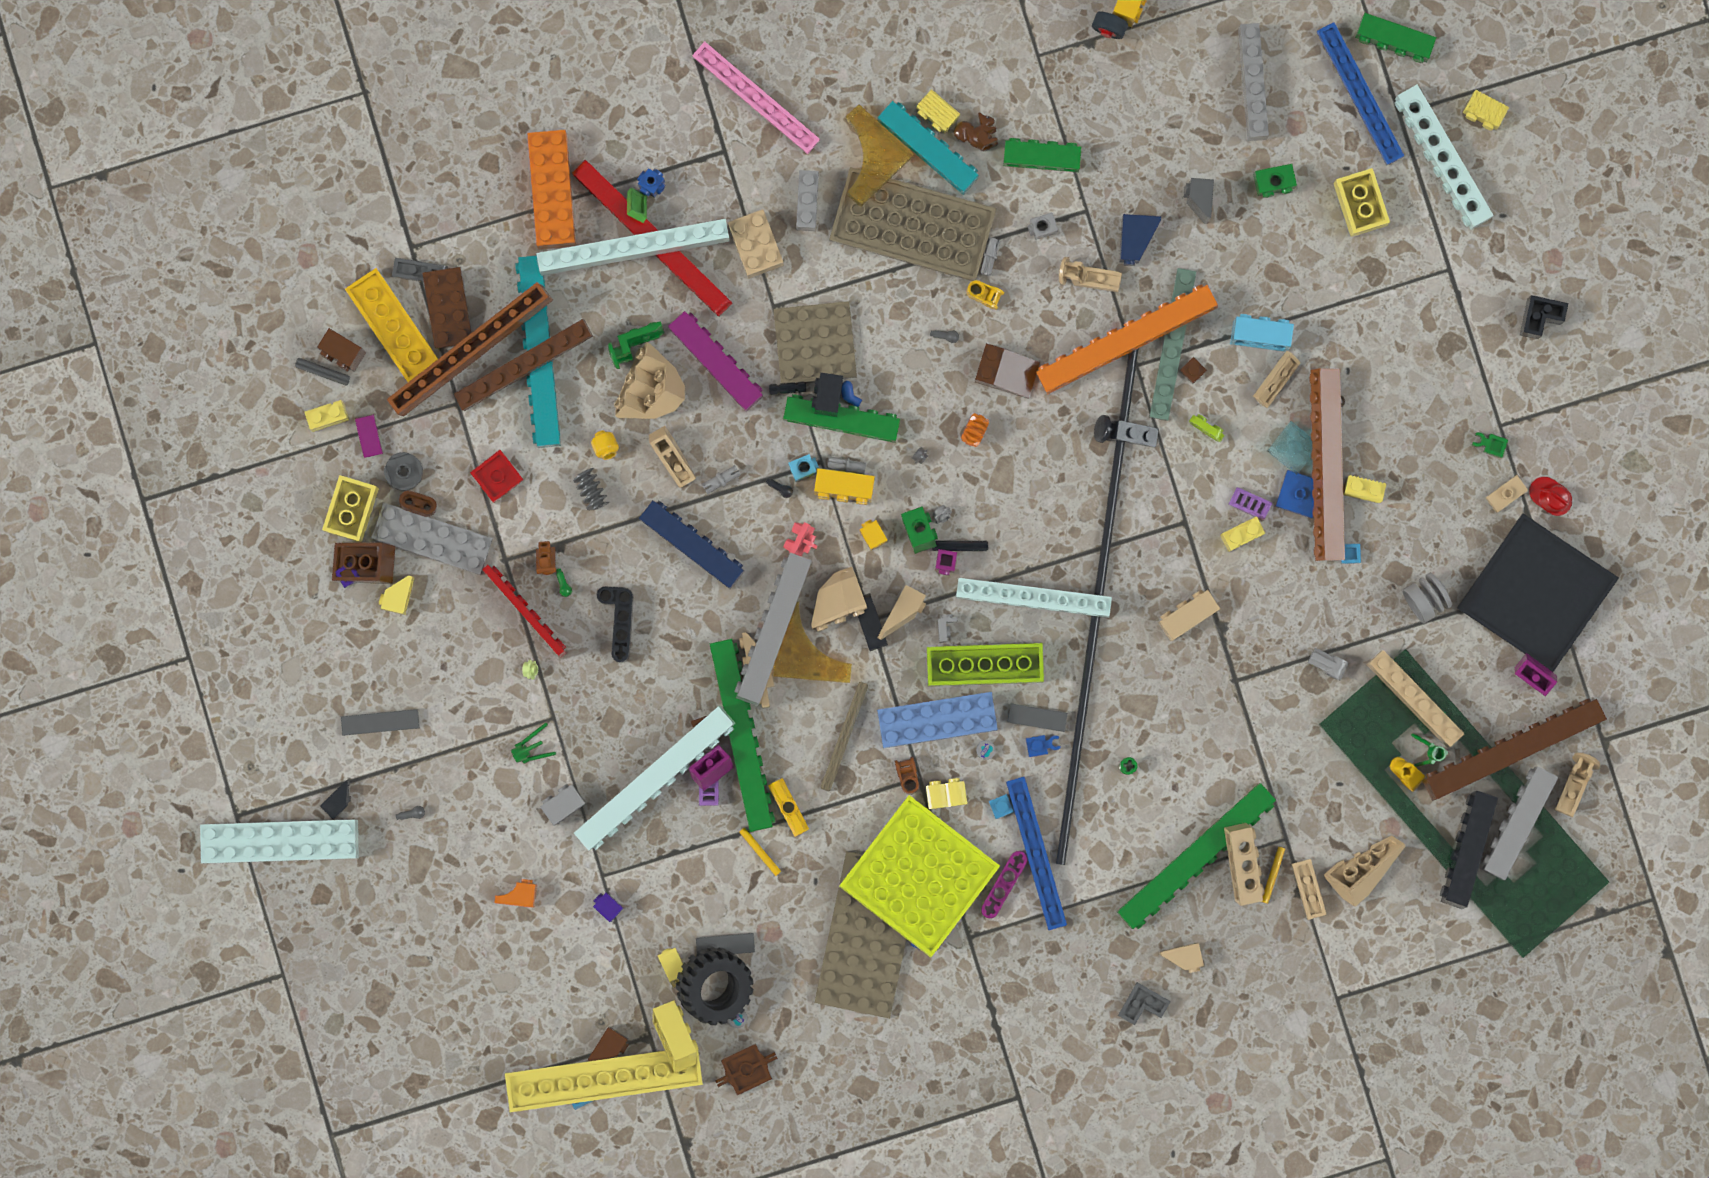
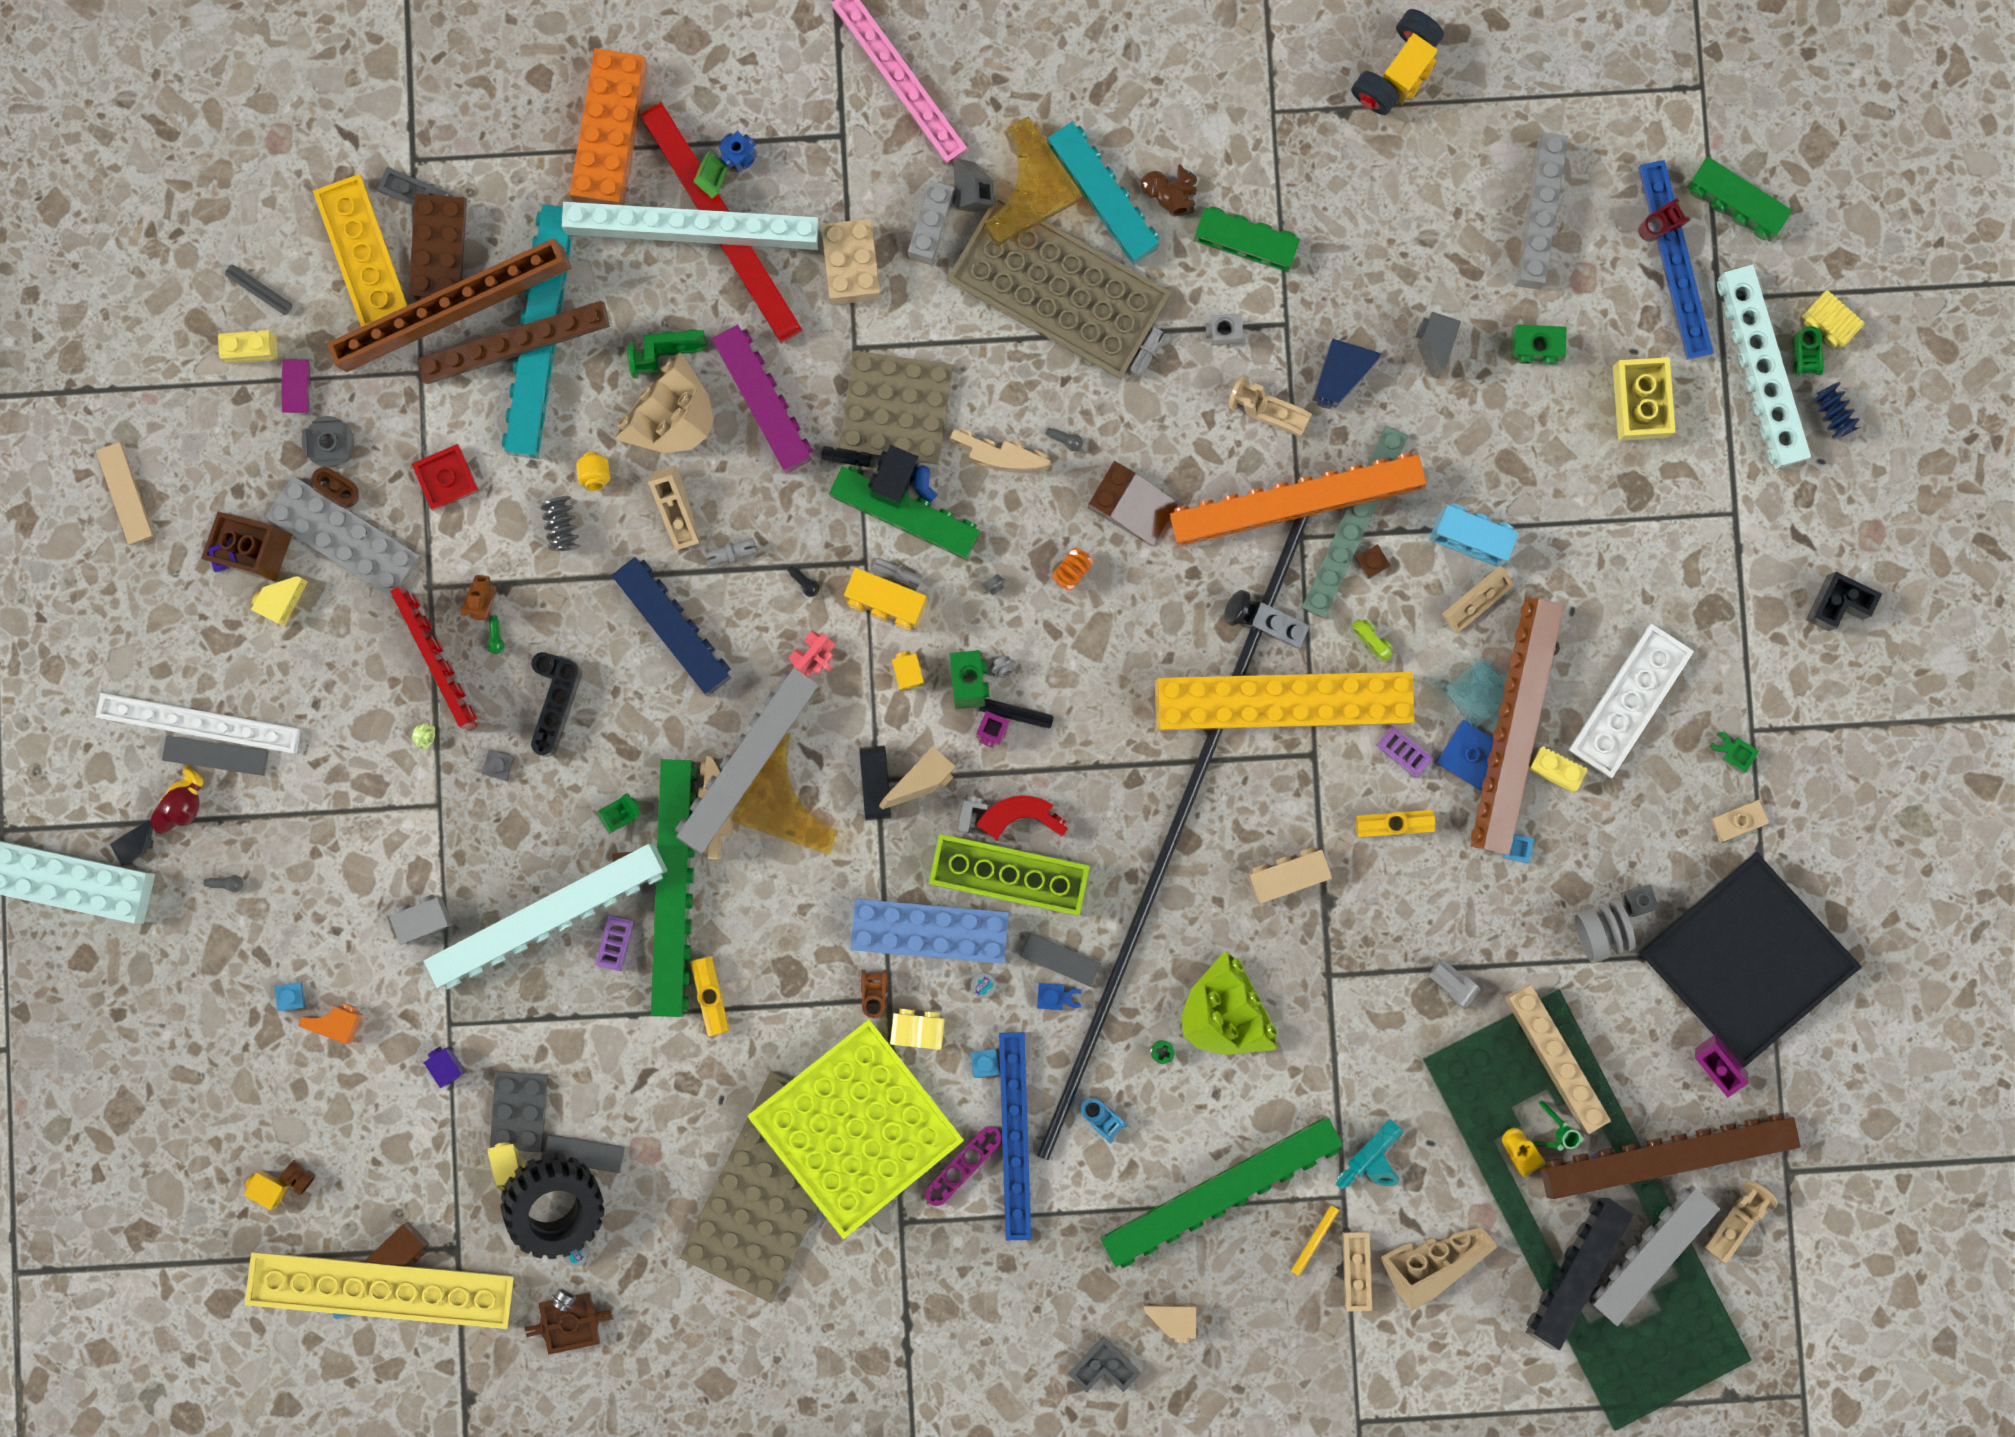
camera: 15 degrees right, 0 degrees up
(263, 546) = (125, 493): none -> tan tile
(338, 348) = (285, 267): reddish brown brick -> none
(350, 509) = (246, 472): light yellow brick -> none
(361, 701) = (198, 723): none -> white tile
(365, 763) = (179, 803): none -> dark red hair
(480, 884) = (290, 996): none -> dark azure plate
(499, 1028) = (265, 1189): none -> yellow brick
(521, 1013) = (297, 1177): none -> reddish brown wheel
(522, 752) = (386, 839): green plant -> none
(589, 678) = (498, 765): none -> flat silver plate
(670, 924) = (519, 1110): none -> dark grey plate
(675, 1036) = (485, 1258): light yellow brick -> none
(688, 690) = (619, 813): none -> green bracket
(711, 767) = (621, 920): magenta brick -> none
(739, 1052) = (563, 1300): none -> flat silver plate
(760, 852) = (659, 1044): yellow bar -> none
(797, 474) = (829, 558): medium azure brick -> none
(830, 166) = (972, 187): none -> dark grey slope
(838, 600) = (840, 744): tan brick -> none
(844, 736) = (805, 922): dark tan axle -> none
(908, 360) = (1010, 458): none -> tan slope
(937, 111) = (1126, 150): light yellow brick -> none
(978, 614) = (1017, 807): none -> red arch
(986, 294) = (1130, 398): yellow piece -> none
(1034, 597) = (1094, 803): light aqua brick -> none
(1097, 825) = (1103, 1119): none -> dark azure piece
(1153, 488) = (1284, 701): none -> yellow brick
(1168, 725) = (1226, 1012): none -> lime brick
(1234, 837) = (1278, 1180): tan brick -> none
(1242, 534) = (1384, 788): light yellow brick -> none
(1268, 554) = (1411, 822): none -> yellow piece
(1300, 805) = (1372, 1158): none -> teal piece
(1345, 66) = (1666, 219): none -> dark red piece
(1406, 426) = (1630, 701): none -> white plate
(1447, 570) = (1639, 900): none -> dark grey brick
(1473, 139) = (1808, 357): none -> green piece
(1504, 176) = (1836, 411): none -> dark blue piece
(1550, 496) = (1796, 837): red piece -> none

